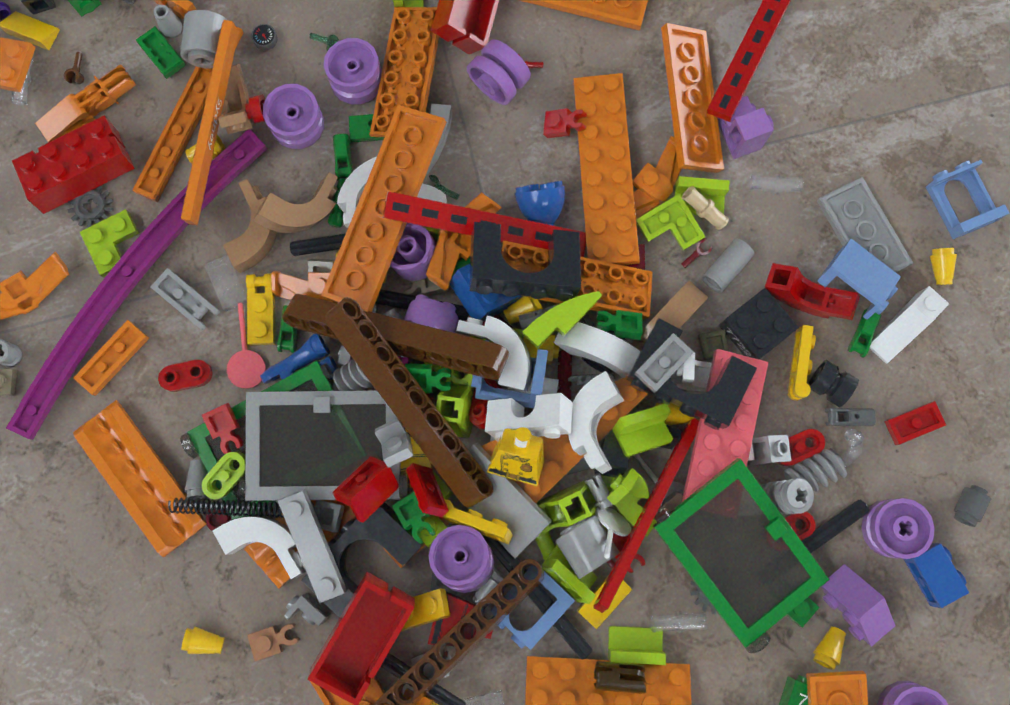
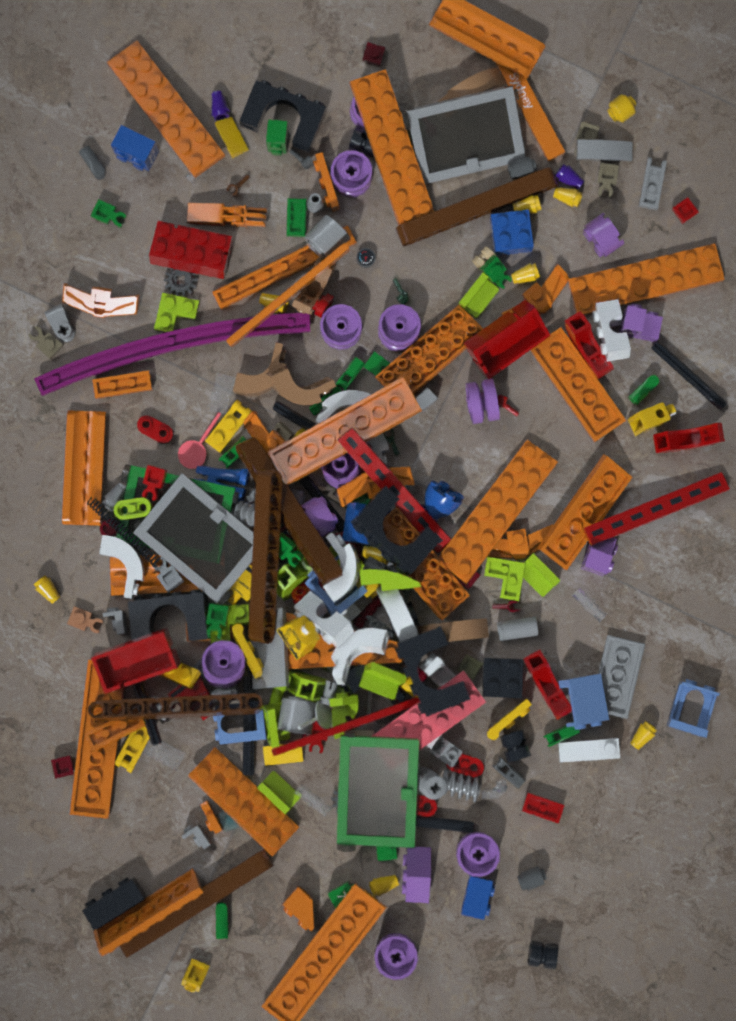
camera: 40 degrees right, 5 degrees up
(183, 297) = (190, 383): light grey hinge -> none
(312, 546) = (149, 588): light grey plate -> none
(367, 488) = (204, 583): red panel -> none
(394, 442) = (239, 571): light grey bracket -> none
(427, 490) = (235, 611): red plate -> none
(560, 122) = (495, 461): red plate -> none
(620, 677) = (255, 799): dark brown arm -> none
(624, 324) = (424, 612): green plate -> none
(663, 363) = (420, 653): light grey plate -> none
(705, 208) = (533, 584): tan pin -> none

